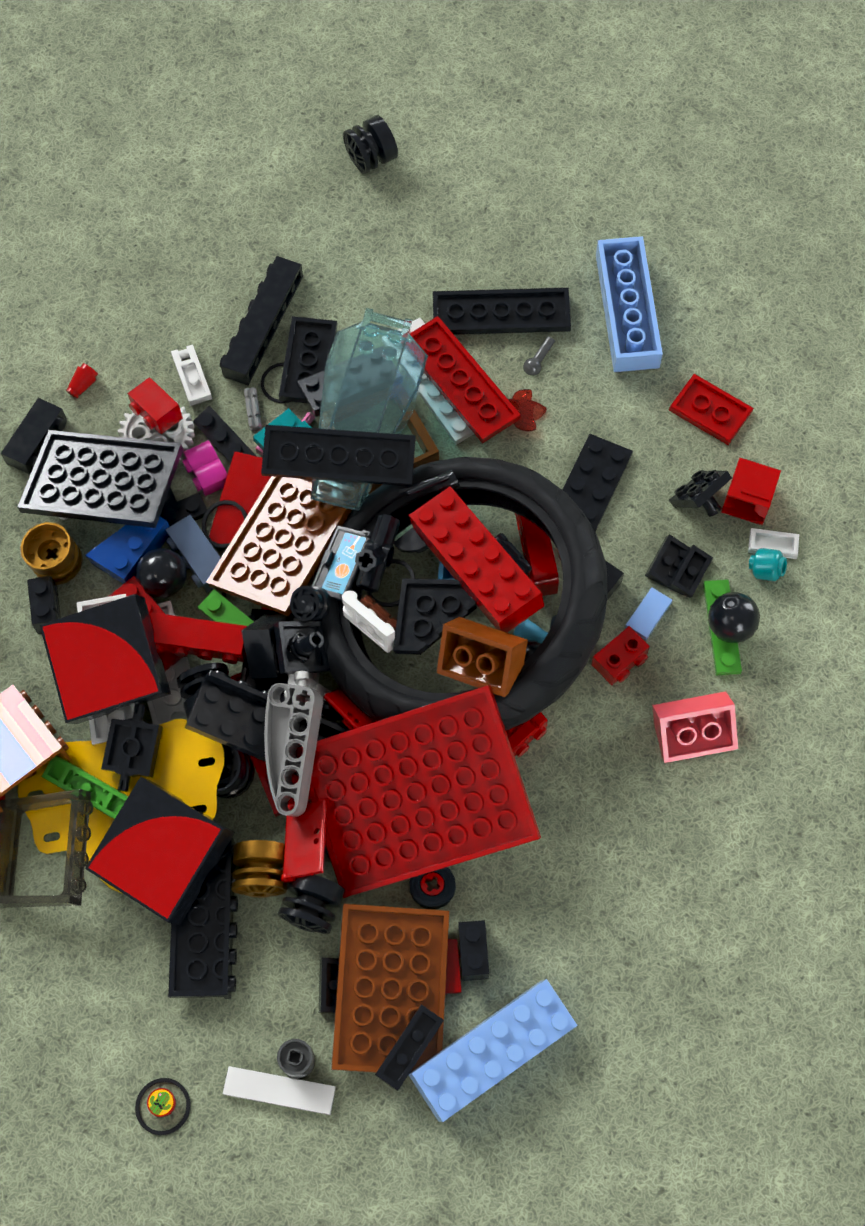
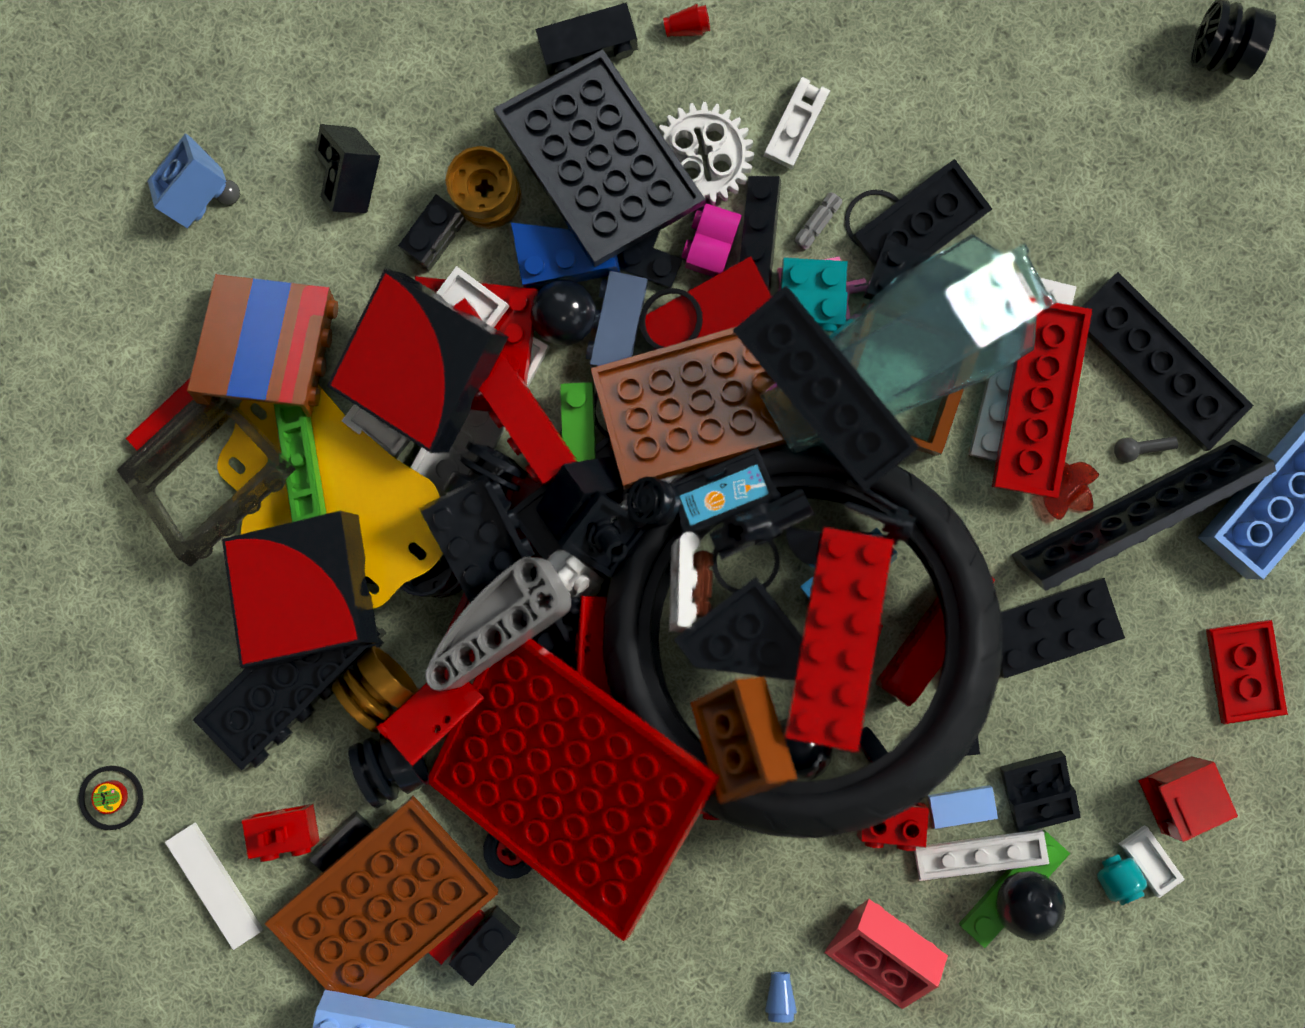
camera: 45 degrees right, 20 degrees up
(132, 747) = (366, 468): black plate -> none
(155, 406) = (721, 130): red brick -> none
(261, 321) = (923, 131): black brick -> none
(287, 1012) = (281, 832): none -> red brick
(296, 1058) = (246, 882): dark grey wheel -> none
(409, 1047) = (343, 975): black plate -> none
(513, 552) = (880, 668): black axle -> none
(571, 385) = (1142, 513): none -> black plate
(668, 809) = (780, 998): none -> medium blue cone
(684, 626) = (981, 855): none -> white tile
(701, 490) = (1142, 749): black plate -> none

